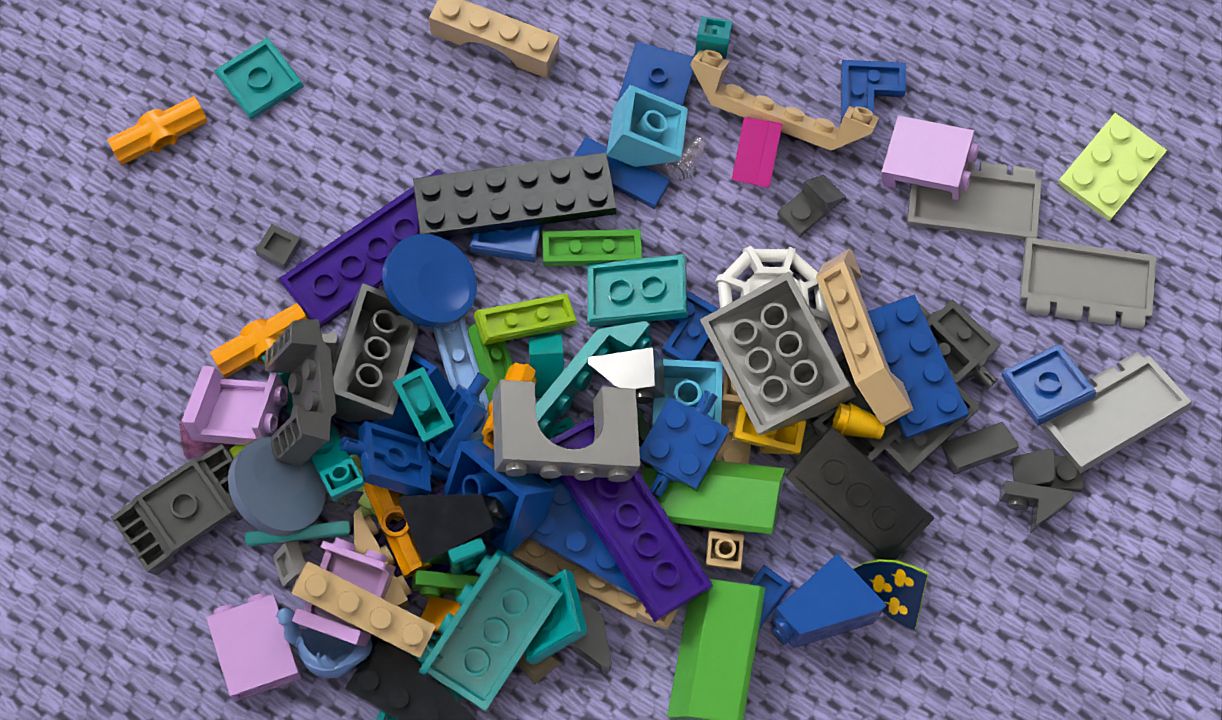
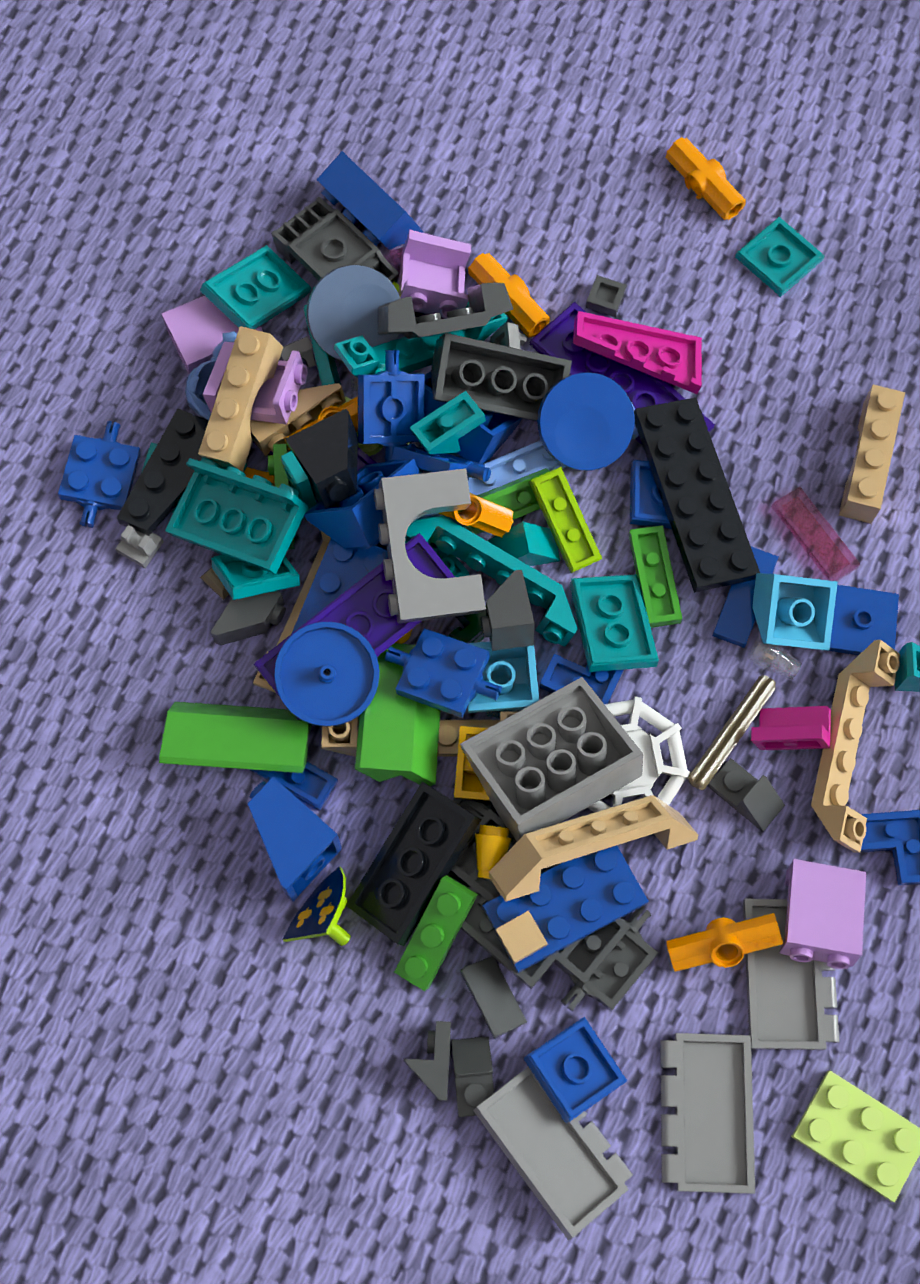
camera: 85 degrees right, 0 degrees up
(132, 467) = (366, 203): none -> blue slope
(216, 593) = (255, 289): none -> teal tile
(350, 215) = (649, 349): none -> dark pink wing
(566, 101) = (815, 535): none -> clear pink tile
(676, 549) = (327, 674): none -> blue piece
(753, 205) = (732, 732): none -> dark tan axle
(924, 484) = (435, 933): none -> bright green plate
(943, 403) = (521, 937): none -> tan tile
(949, 241) = (724, 942): none -> light orange piece

